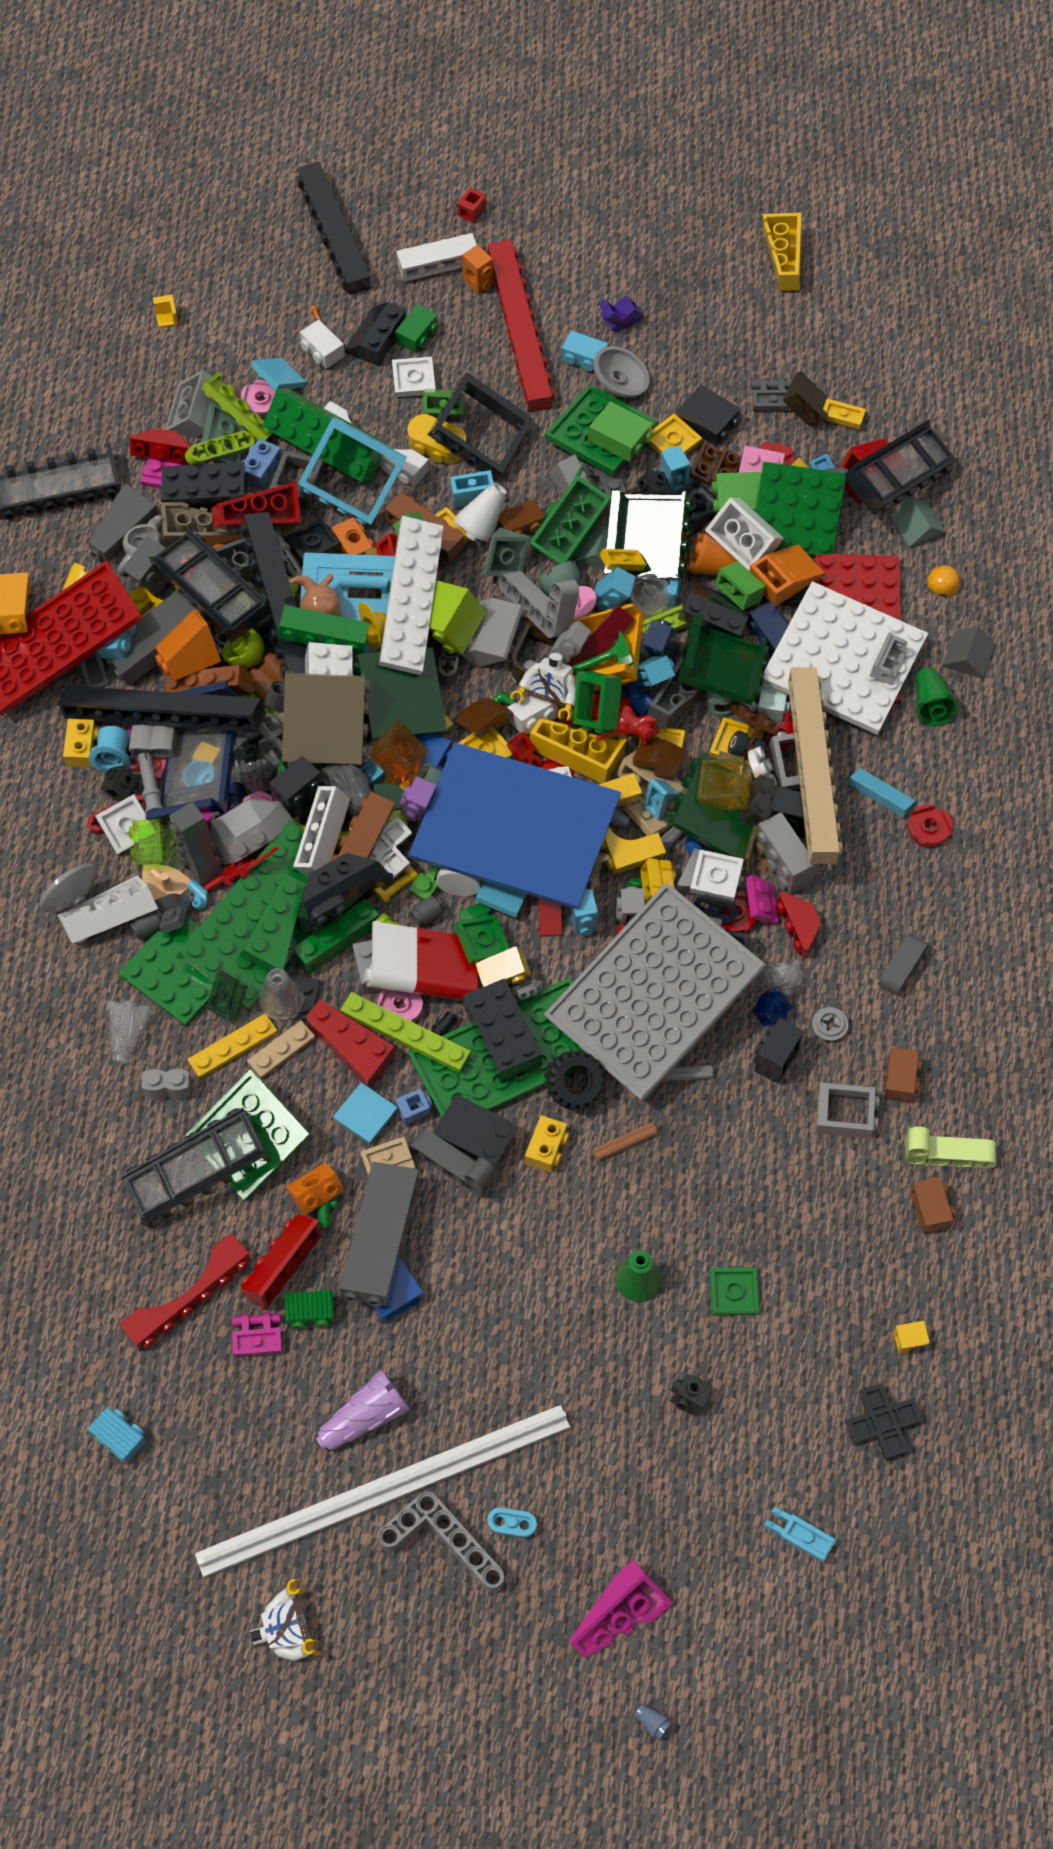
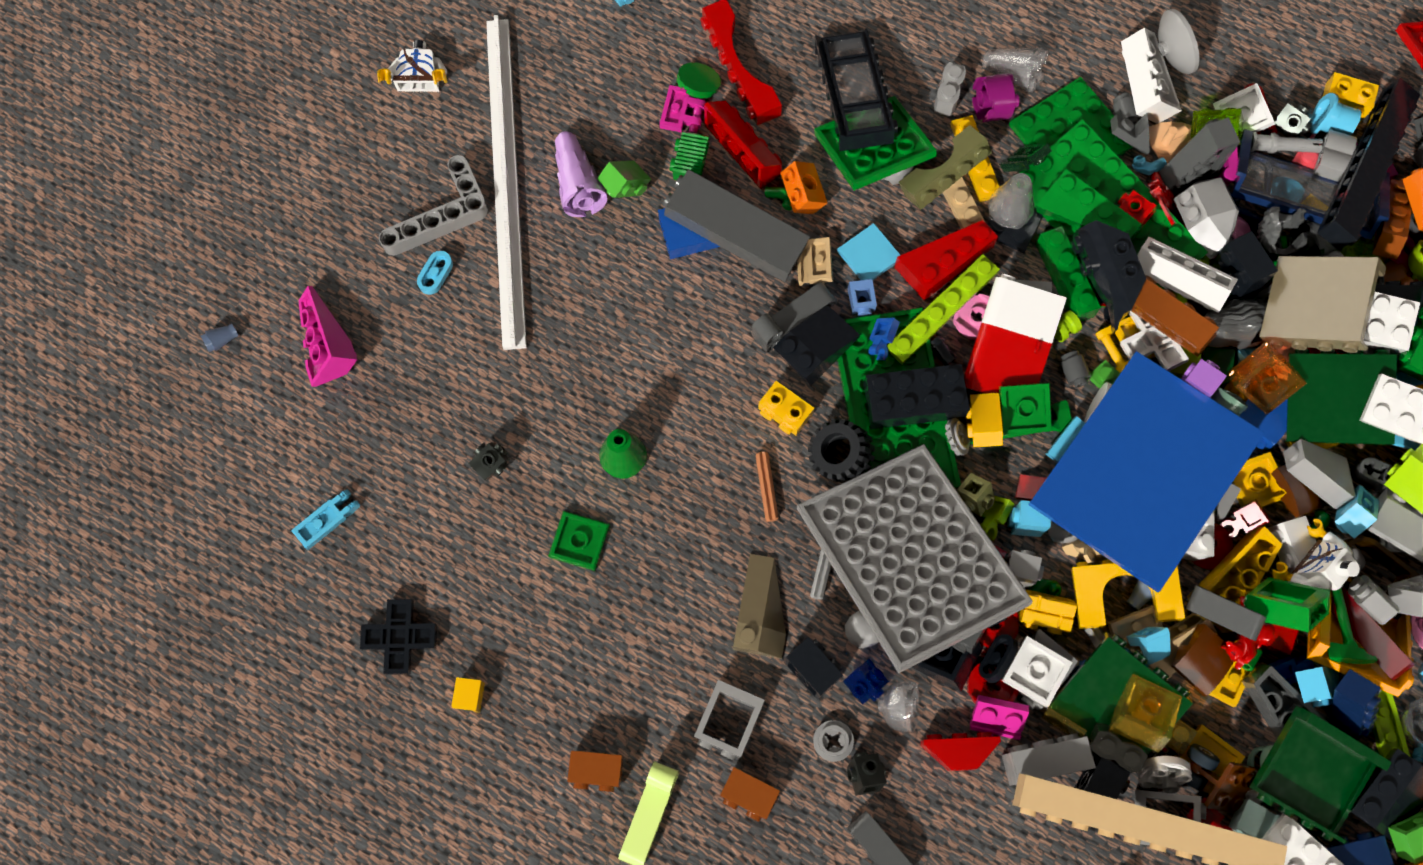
camera: 110 degrees right, 10 degrees up
(167, 1039) = (994, 97): none -> magenta brick
(219, 1327) = (698, 80): none -> green tile
(269, 876) = (1141, 214): none -> red brick
(281, 1079) = (925, 185): none -> olive arch
(359, 1358) = (624, 179): none -> bright green brick
(448, 1074) = (883, 333): none -> blue plate
(465, 701) = (1321, 472): none -> light grey slope
(491, 670) = (1357, 513): none -> medium azure brick
(568, 961) = (976, 494): none -> olive brick
(583, 944) = (996, 515): none -> lime plate
(619, 743) = (1226, 612): none -> dark grey beam
(727, 1028) = (859, 631): none -> light grey hair
(746, 1113) = (760, 617): none -> dark tan wedge
(848, 988) = (866, 773): none -> pearl dark grey brick

